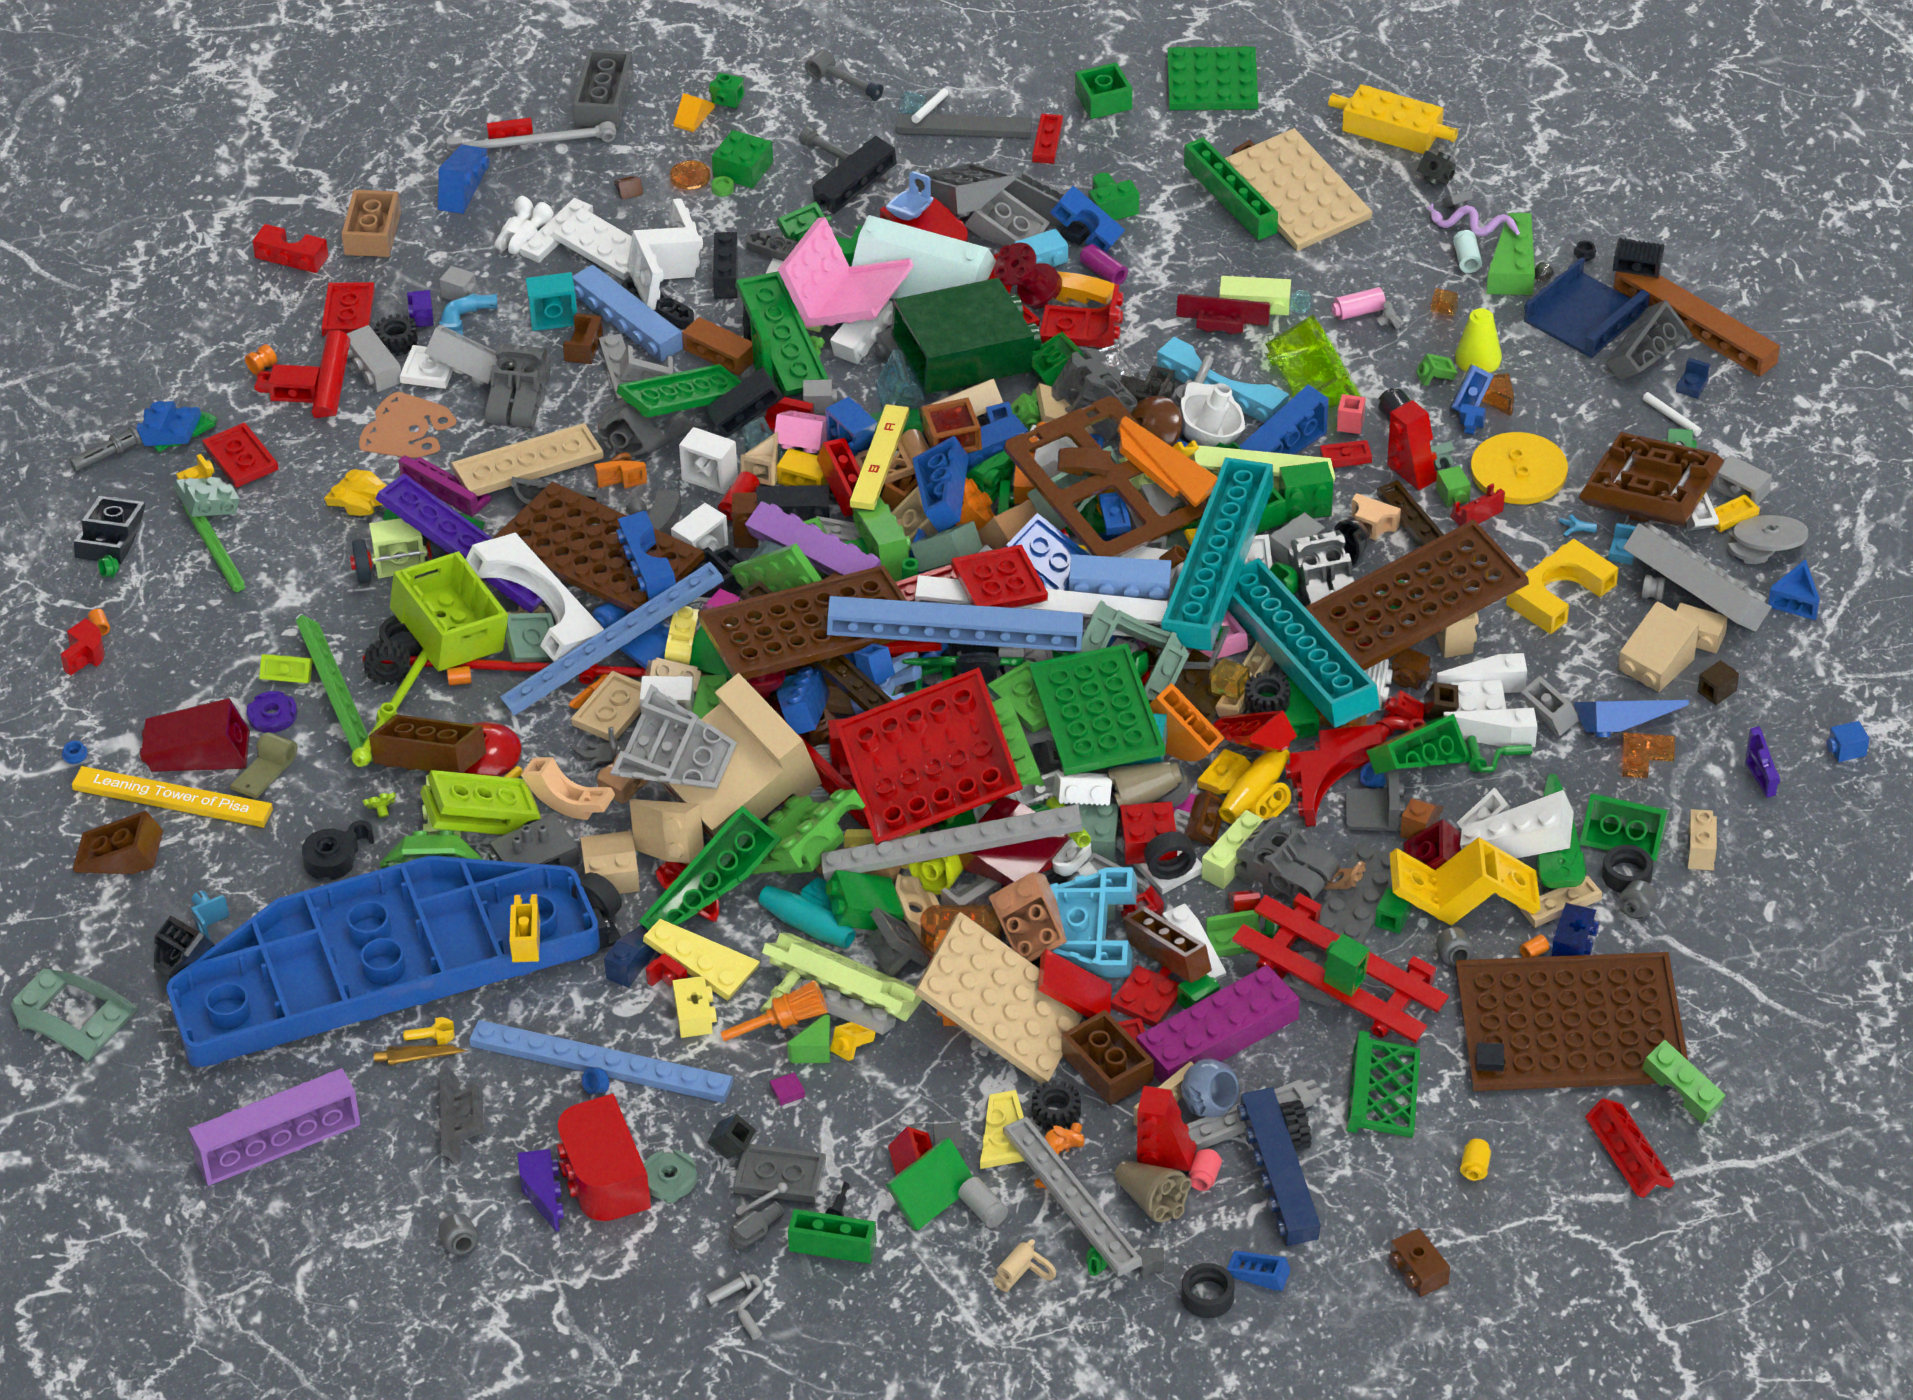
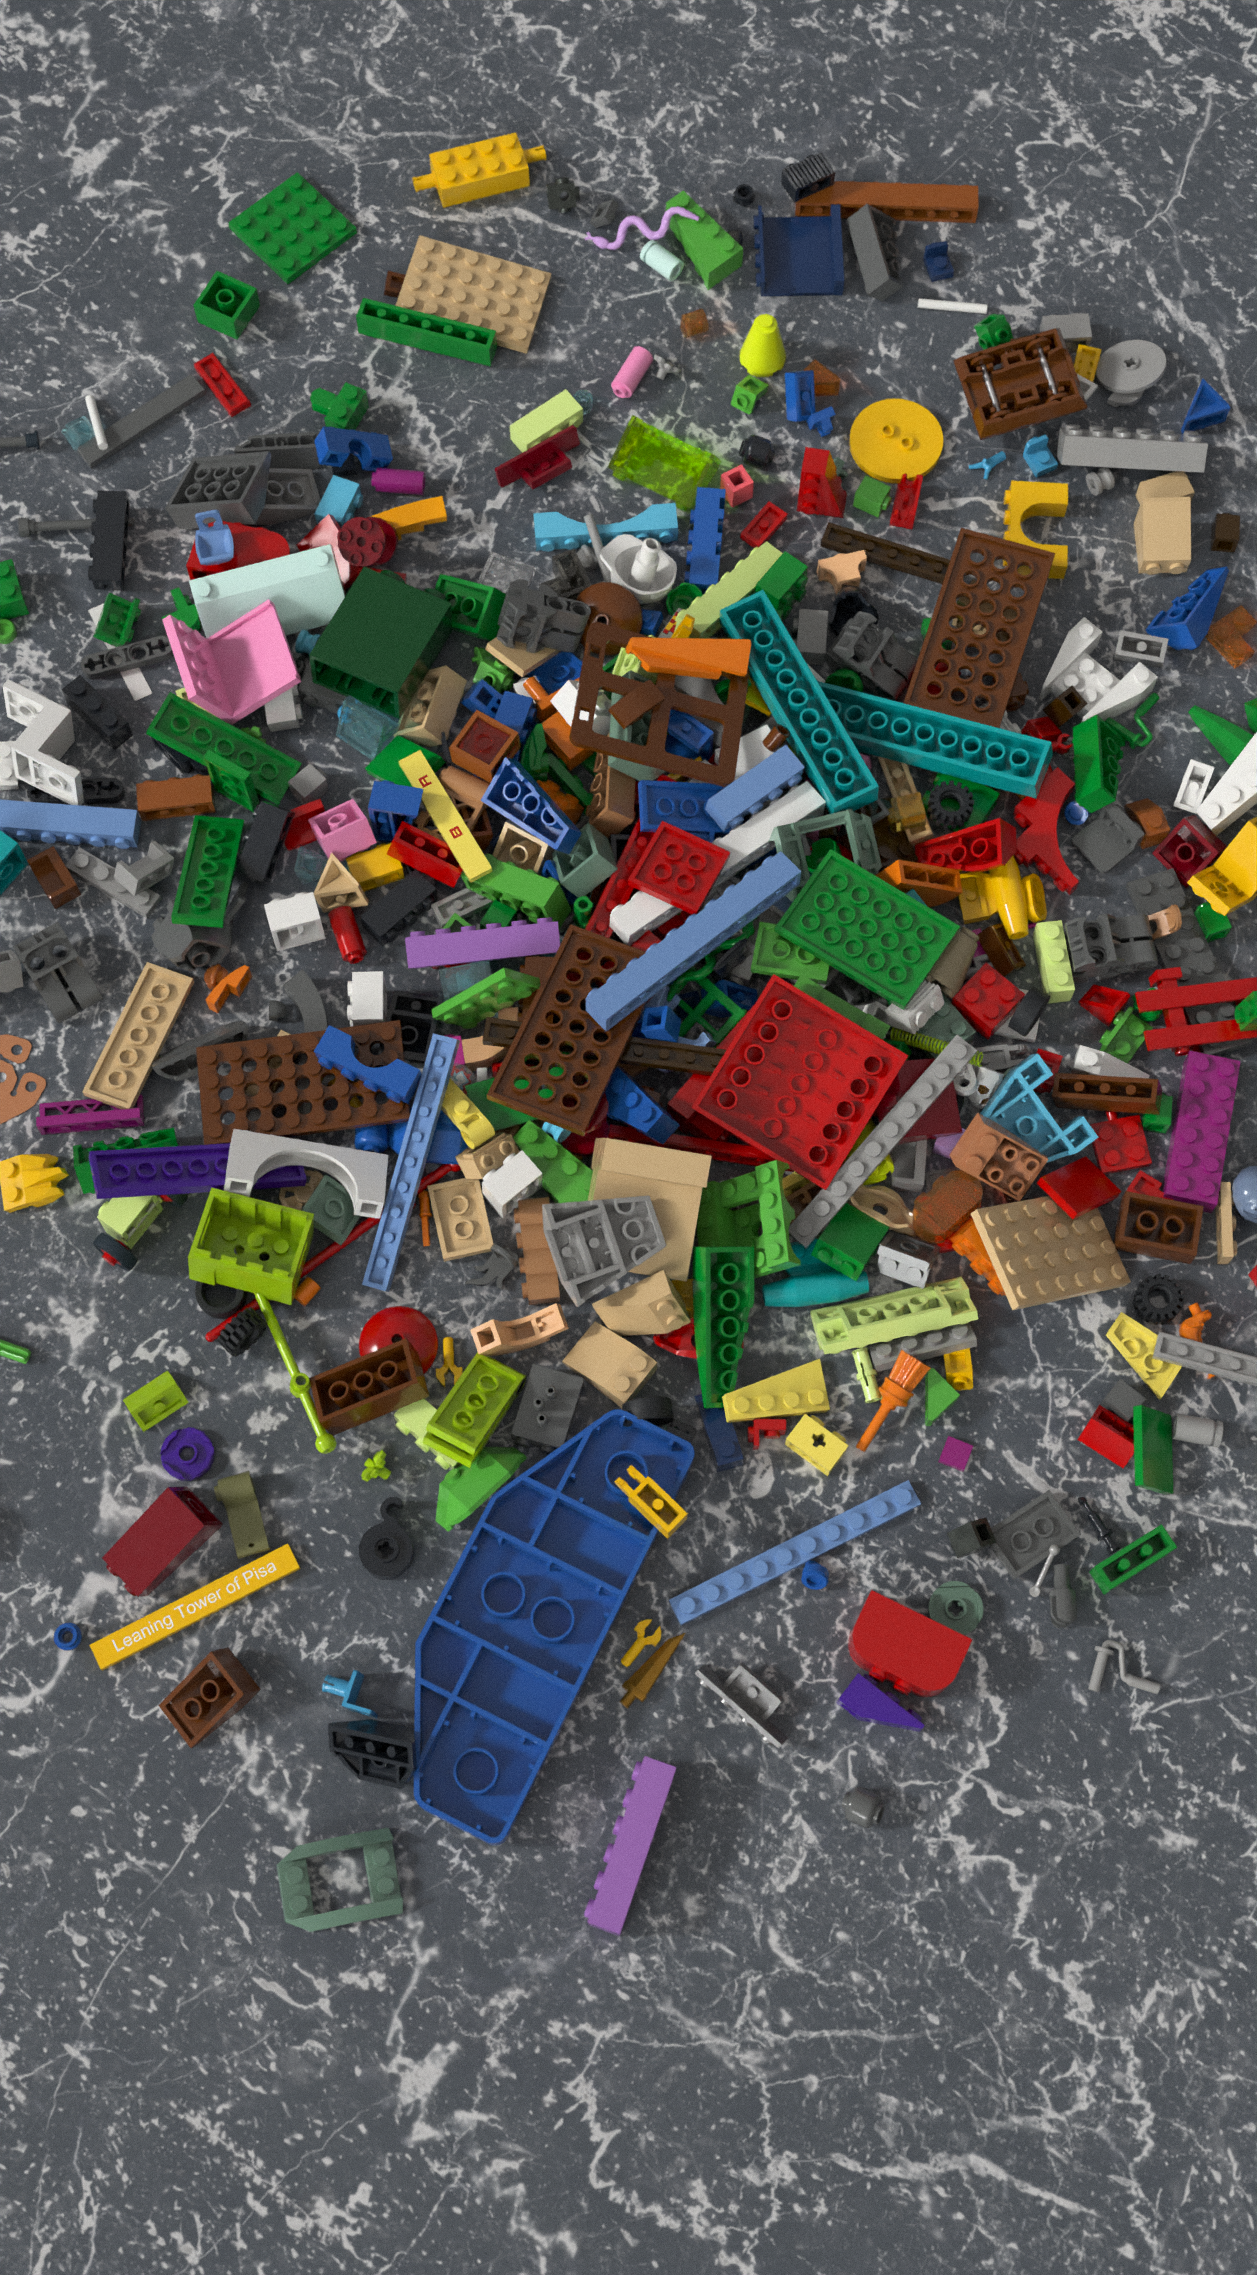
camera: 45 degrees left, 25 degrees up
(333, 682) = (218, 1388): bright green tile -> none
(742, 508) = (386, 956): reddish brown brick -> none
(1085, 325) = (447, 551): red bracket -> none

